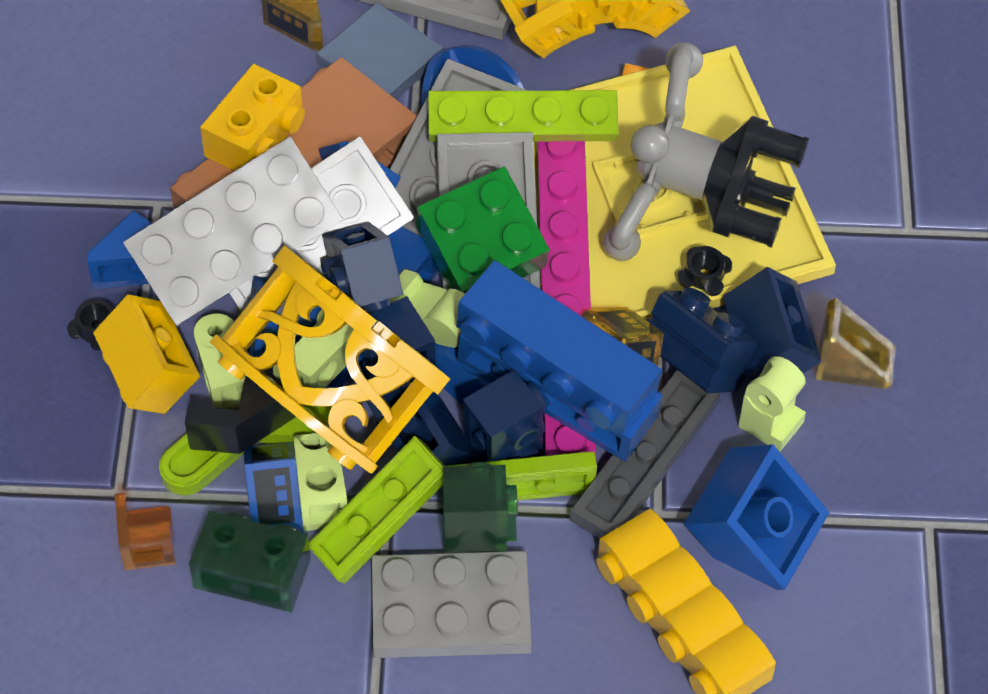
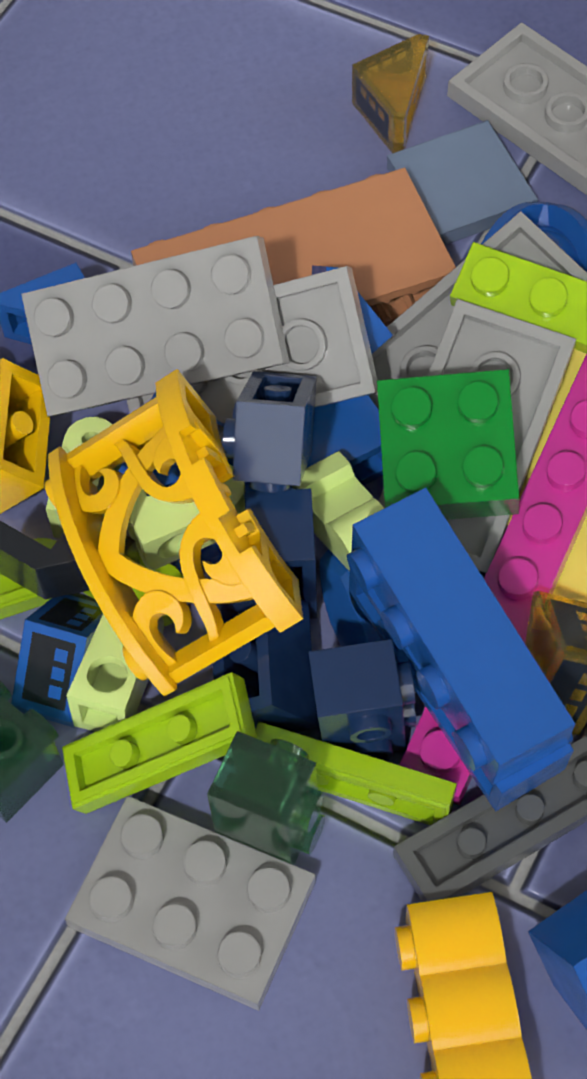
camera: 30 degrees right, 5 degrees up
(252, 118) = (260, 195): yellow brick -> none

